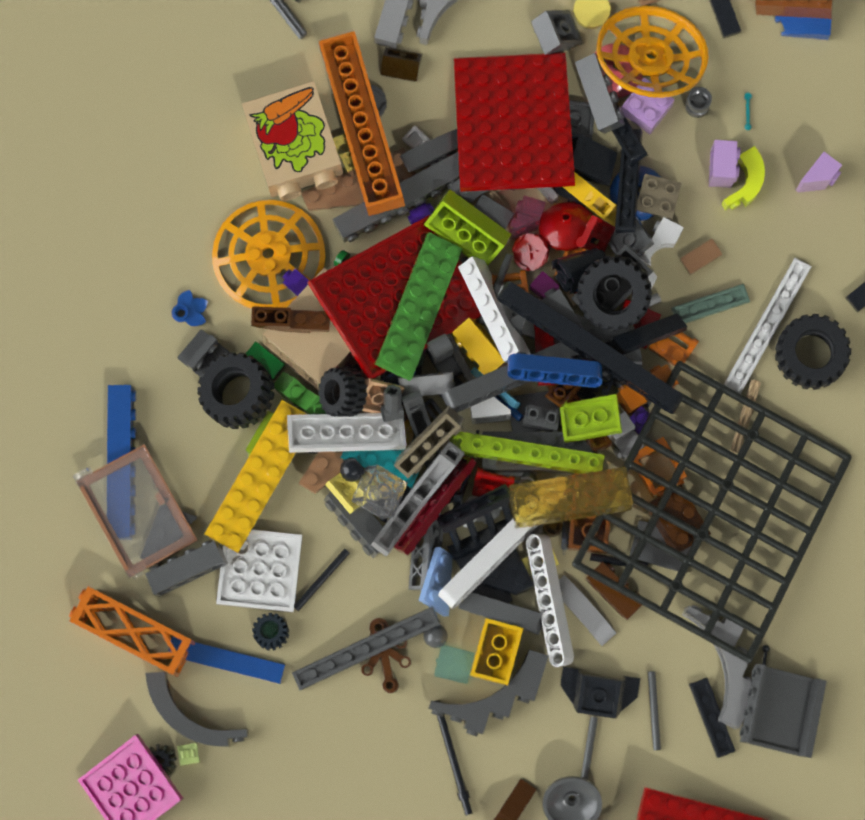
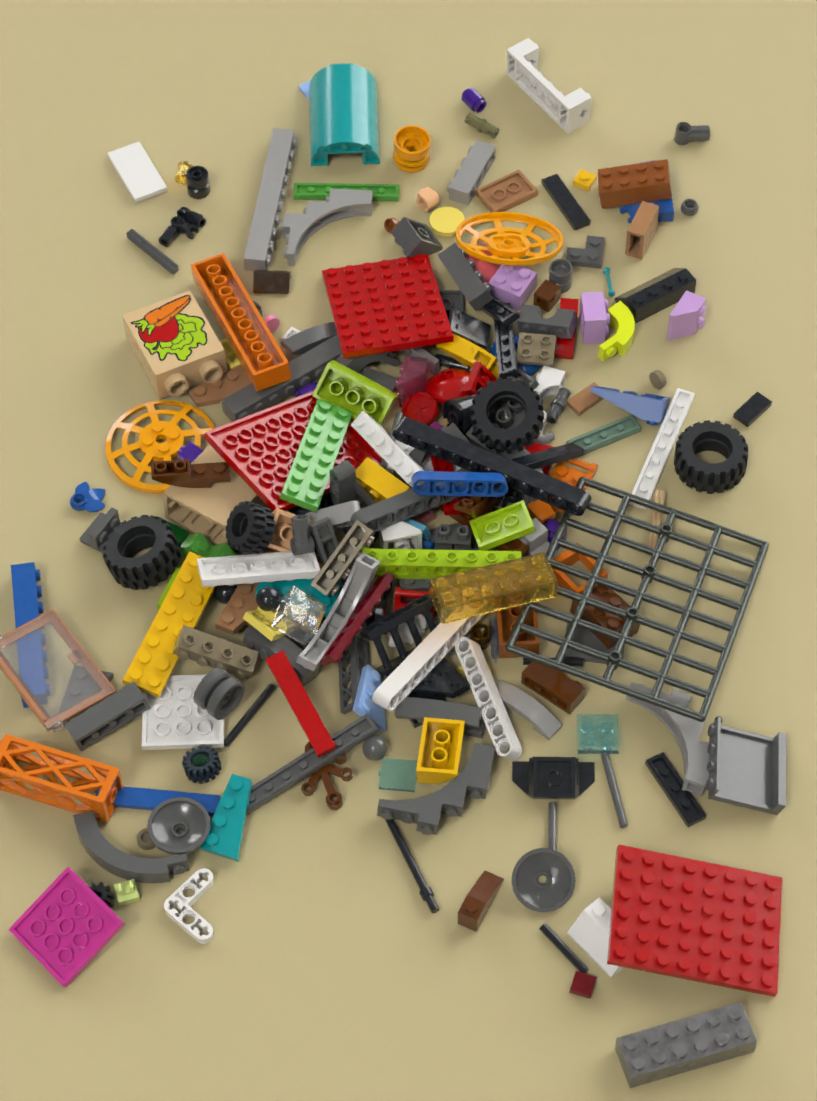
camera: 10 degrees left, 25 degrees down
(212, 700) = (144, 840): none -> dark tan tile
(232, 687) = (175, 816): none -> dark grey dish
(240, 773) = (184, 906): none -> white beam
(287, 700) = (229, 819): none -> teal wing
(294, 566) = (218, 693): none -> dark grey wheel
(295, 516) = (215, 652): none -> dark tan brick
(370, 586) = (300, 704): none -> red tile
(392, 121) = (272, 323): none -> bright pink tile
(530, 6) = (390, 224): none -> dark orange hinge
(648, 649) = (597, 734): none -> clear light blue plate
(670, 262) = (558, 405): none -> dark grey pin
(681, 123) = (547, 295): none -> reddish brown brick
(688, 168) = (561, 324): none -> dark grey arch
(695, 165) = (565, 346): none -> red tile
(733, 76) = (588, 257): none -> dark grey plate
(755, 276) = (646, 407): none -> wedge
(776, 245) = (657, 379): none -> dark tan tile
(793, 56) = (642, 230): none -> medium nougat brick
(793, 134) = (658, 293): none -> black slope
(852, 23) = (689, 207): none -> dark grey plate

